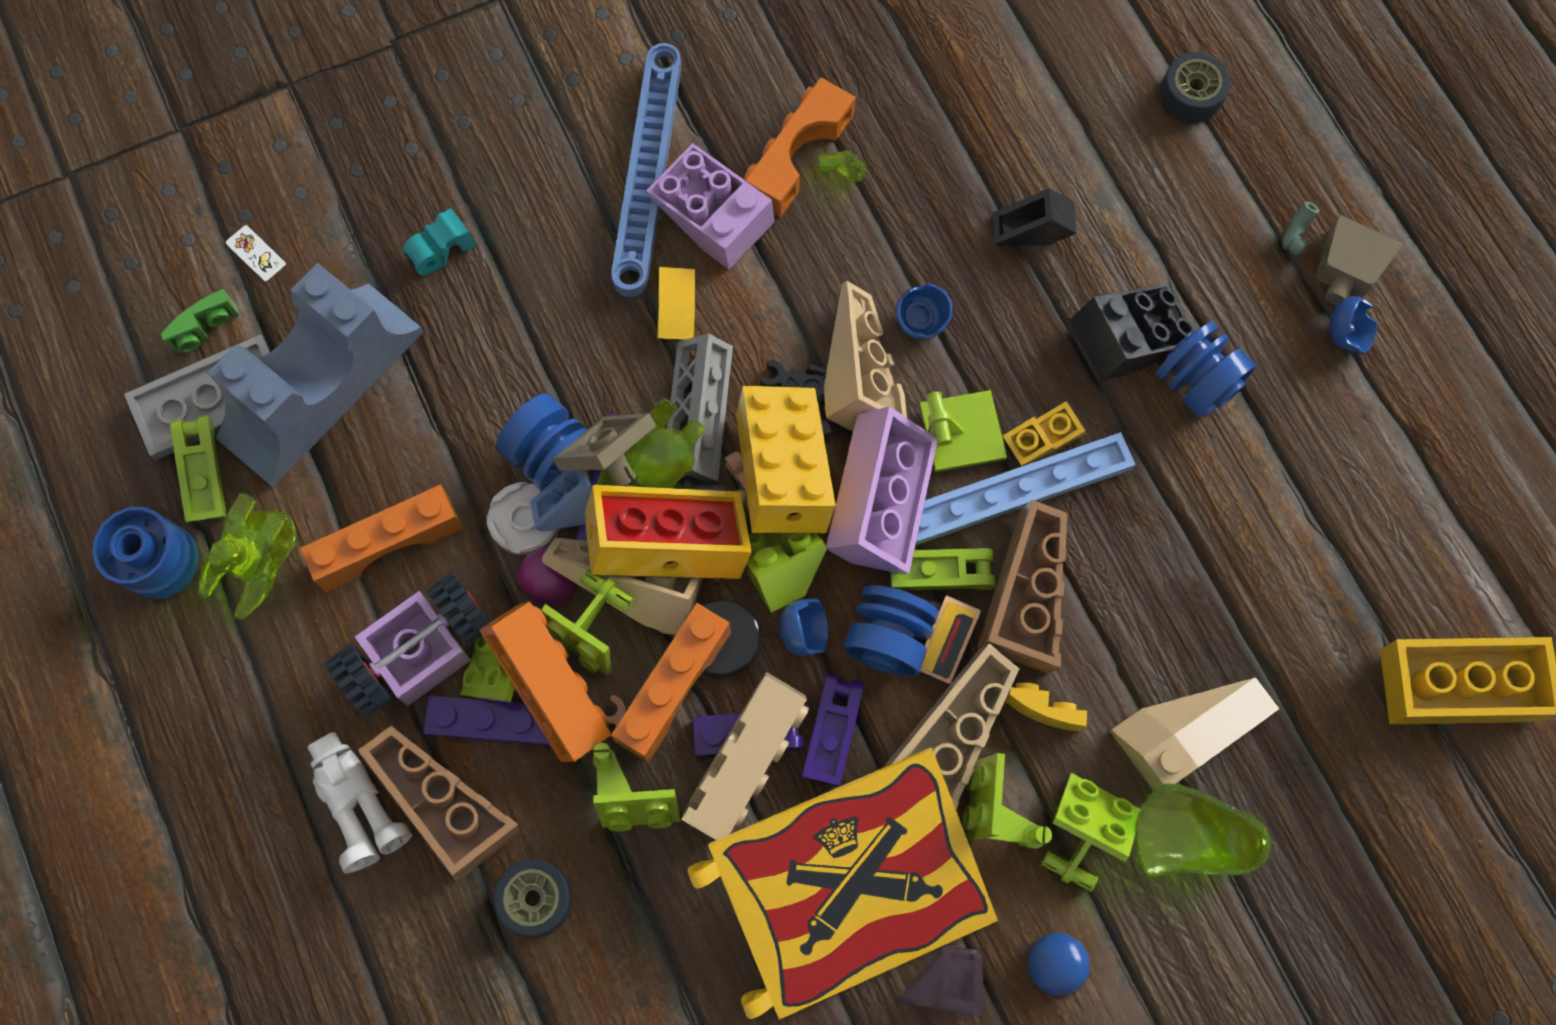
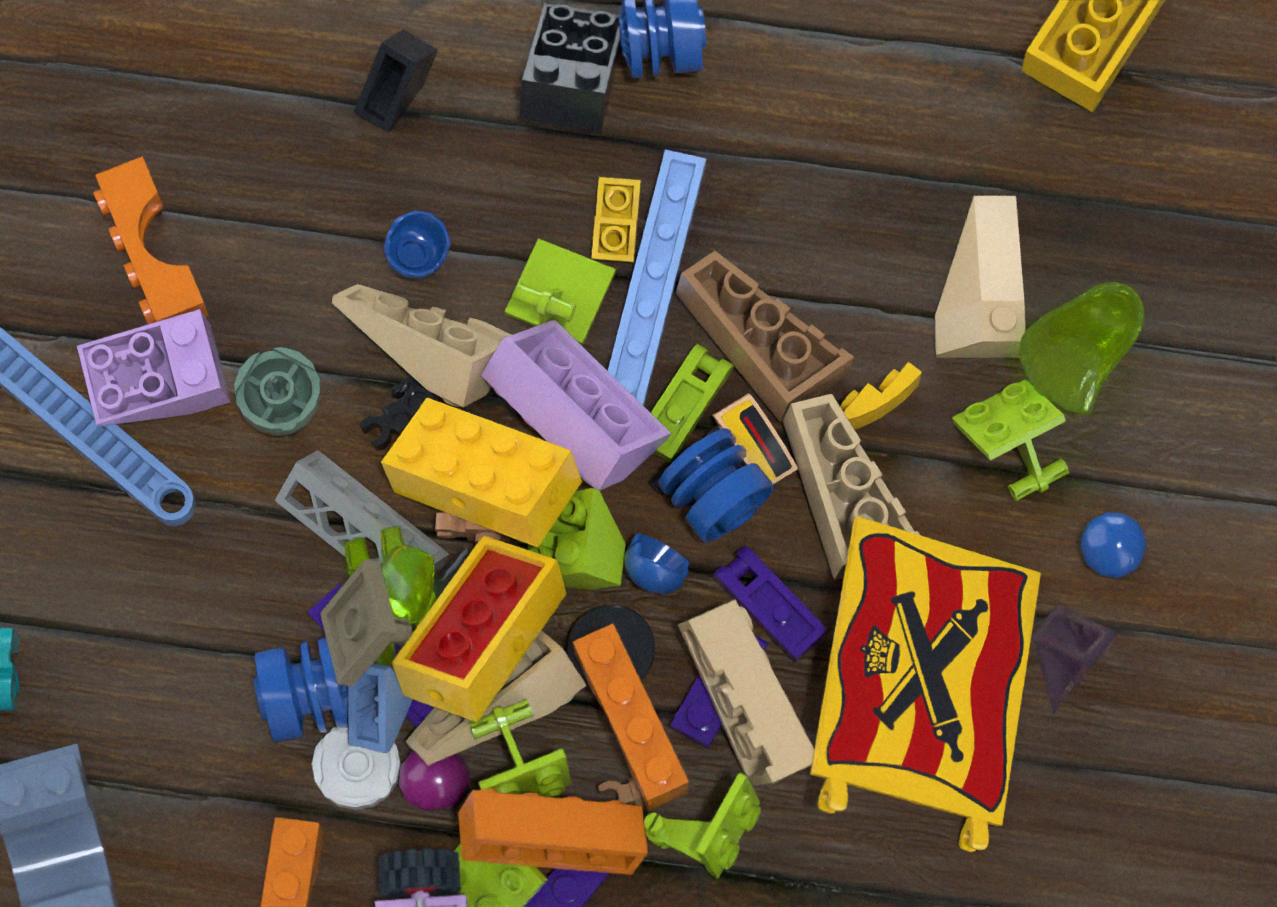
camera: 55 degrees left, 0 degrees up
(676, 303) = (236, 474): yellow slope -> none
(749, 288) = (278, 391): none -> sand green cylinder
(845, 163) = (197, 215): clear neon green arm -> none
(988, 817) = (935, 510): lime plate -> none

